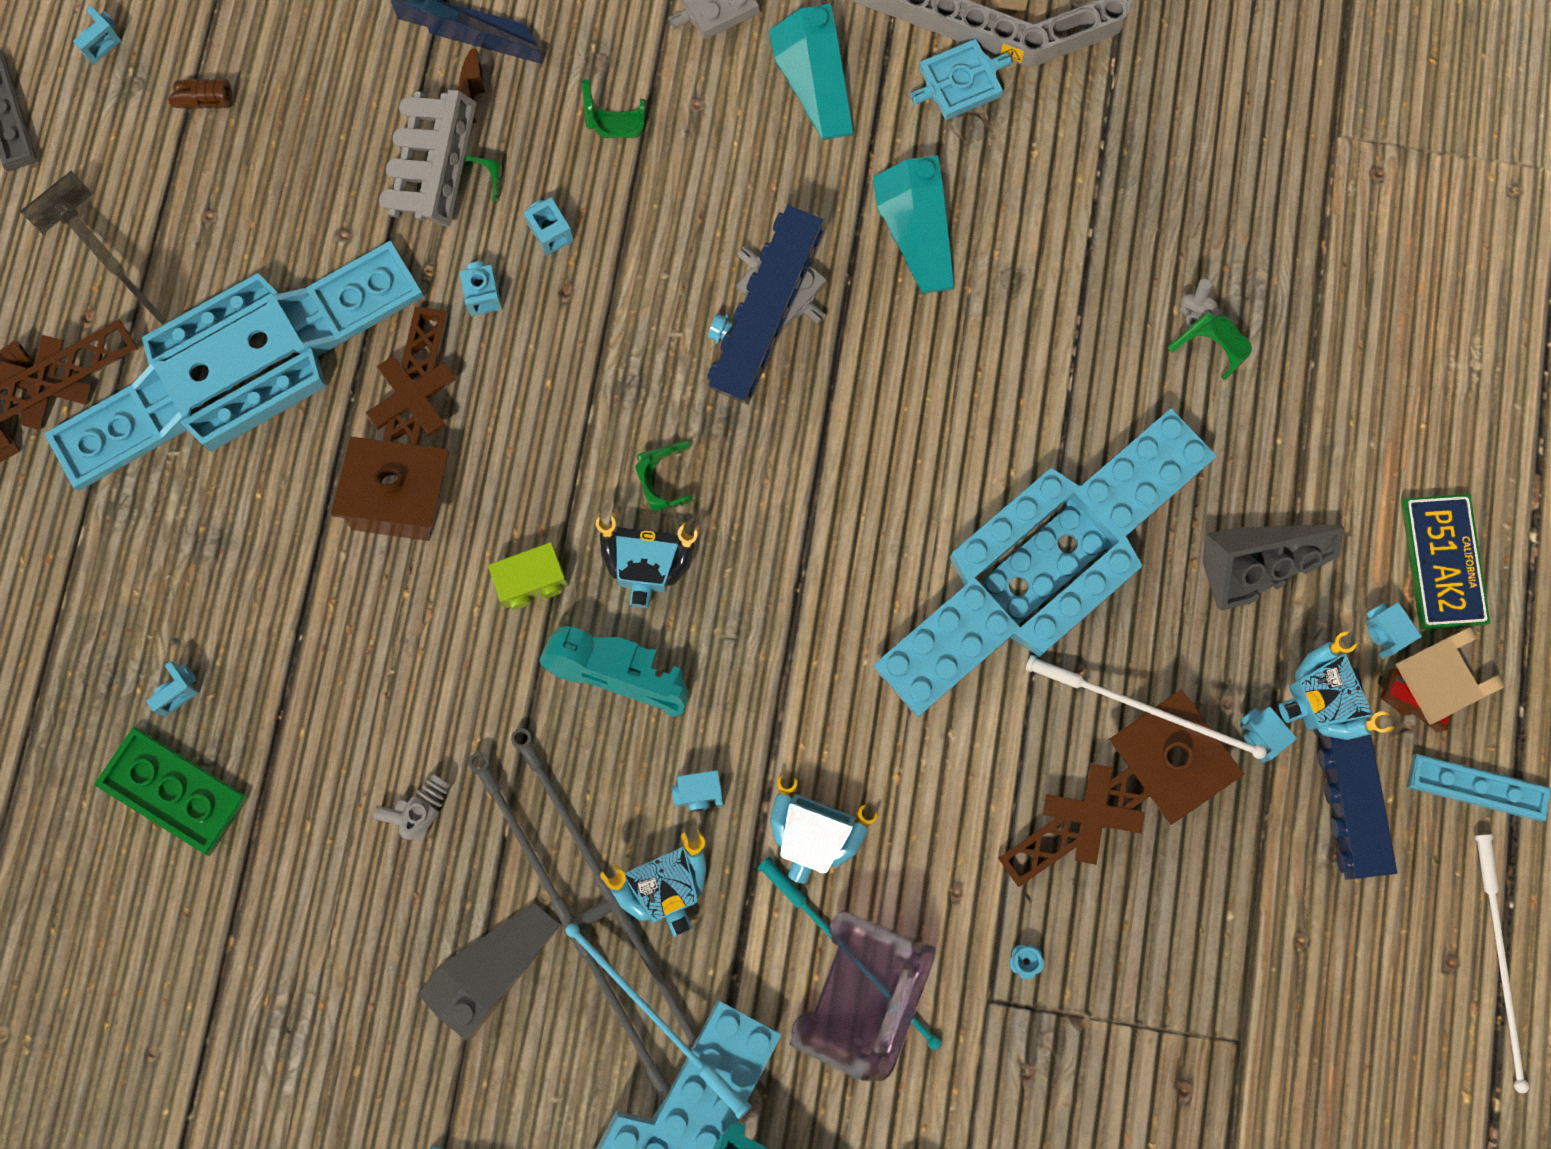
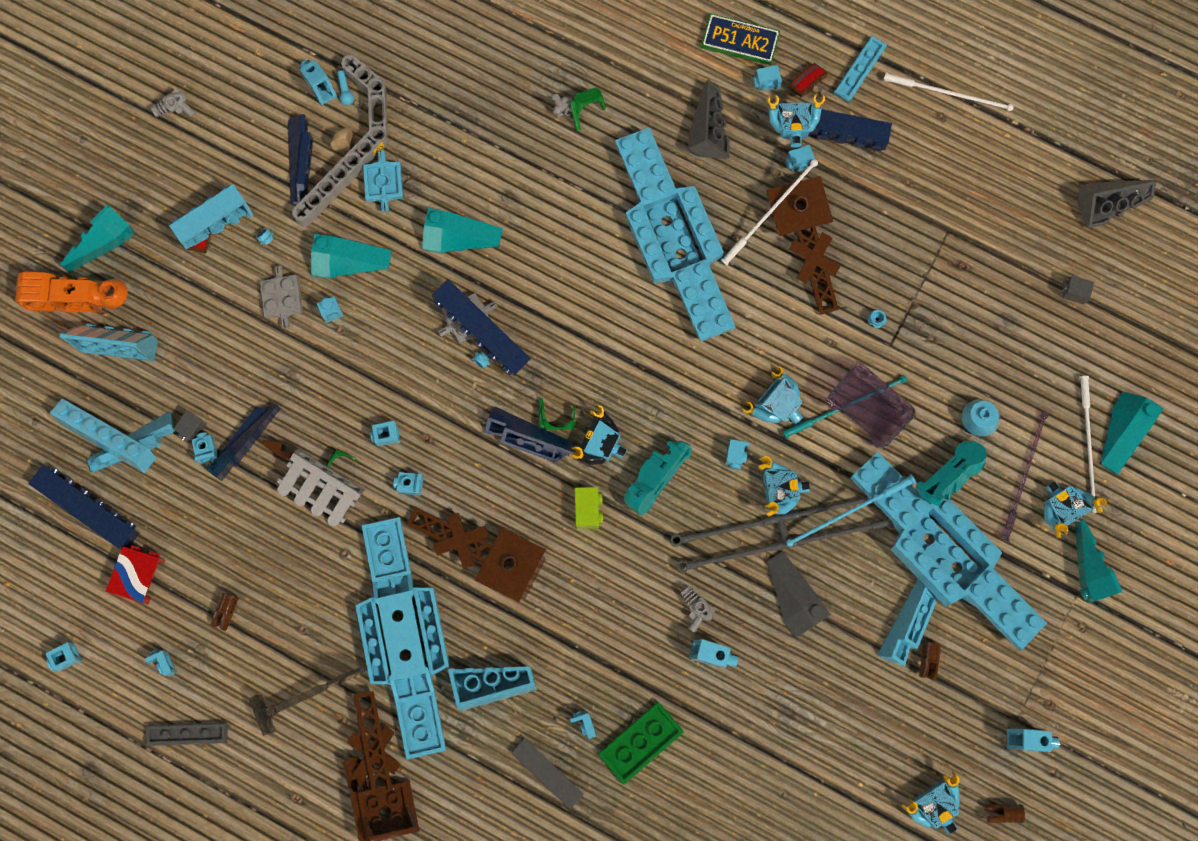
camera: 70 degrees left, 0 degrees up
(82, 658) = (547, 773): none -> dark grey tile
(189, 509) = (488, 685): none -> medium azure wedge
(346, 846) = (705, 652): none -> medium azure torso
(612, 124) = (335, 378): green helmet -> none
(616, 442) = (527, 436): none -> dark blue wedge
(720, 73) = (330, 309): none -> medium azure brick
(1442, 679) = (801, 64): tan flag -> none

